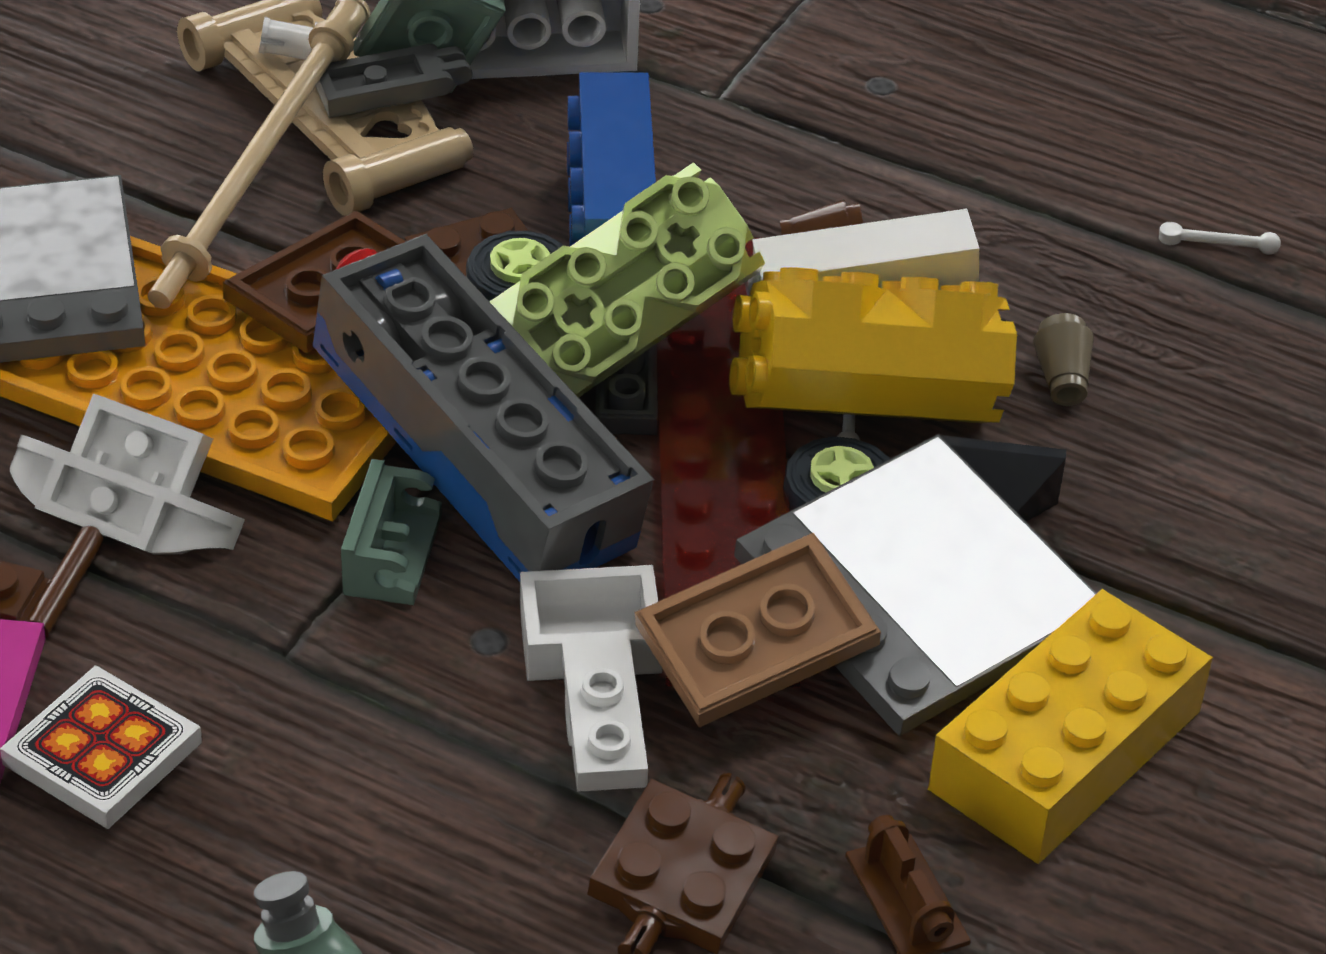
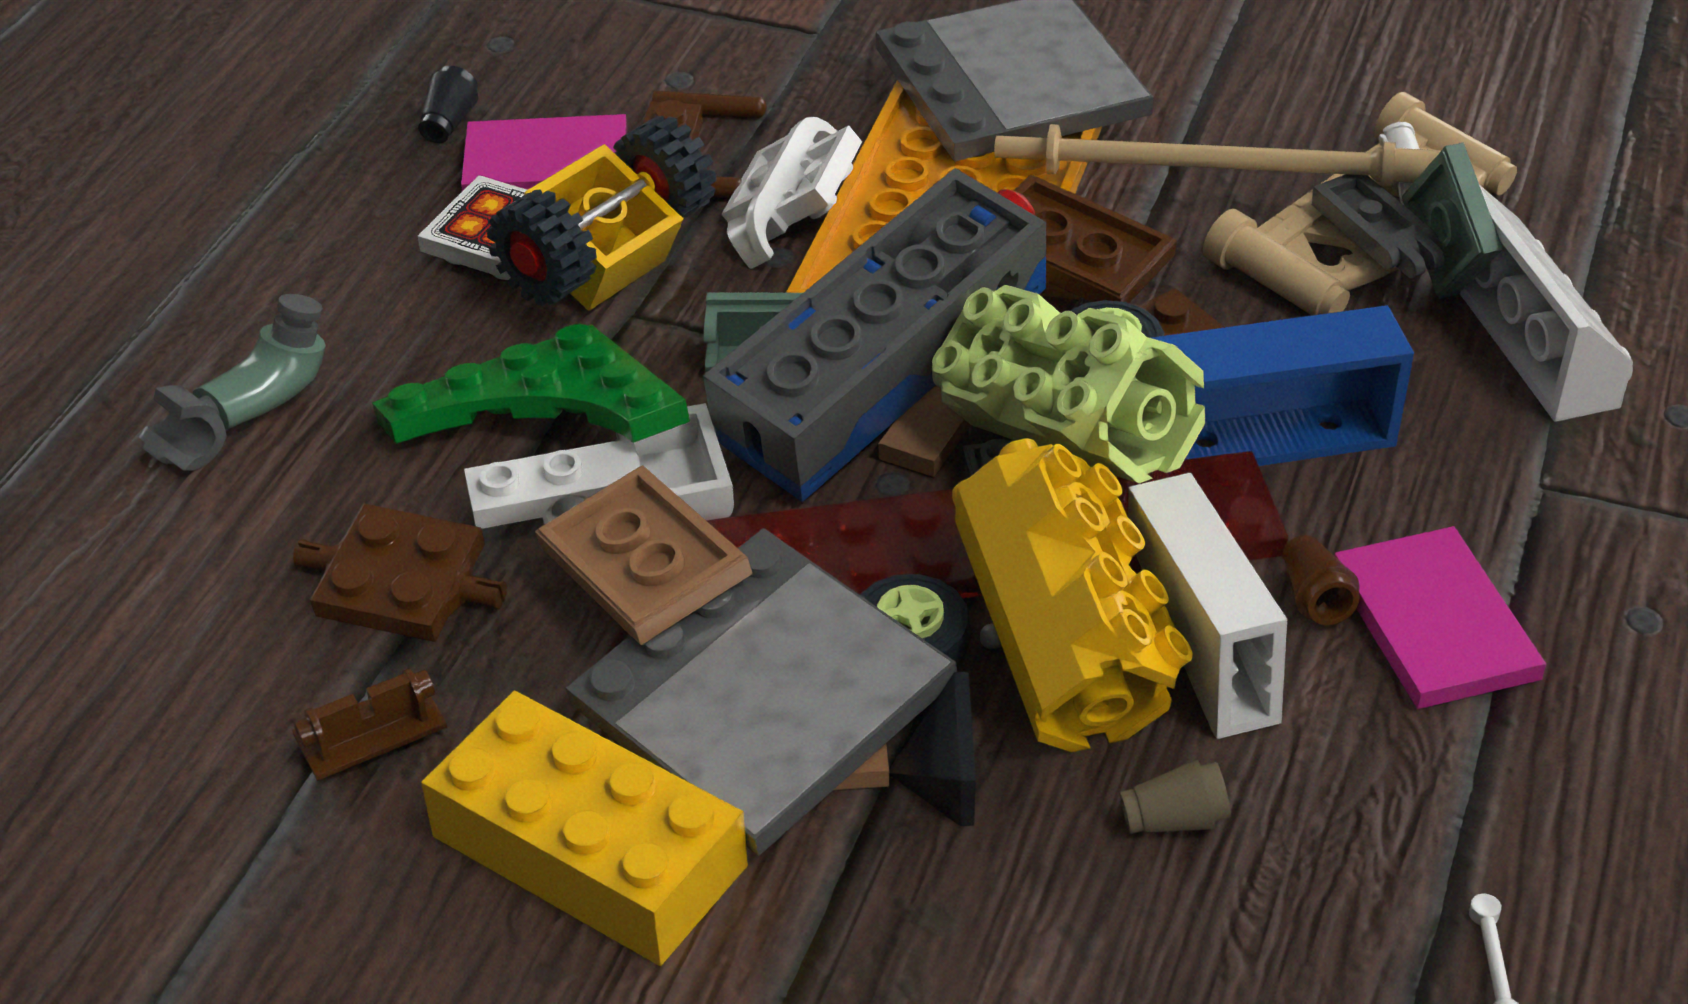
camera: 85 degrees right, 0 degrees up
(182, 617) = (603, 216): none -> brick
(422, 700) = (571, 371): none -> green plate
(884, 175) = (1440, 618): none -> dark pink tile

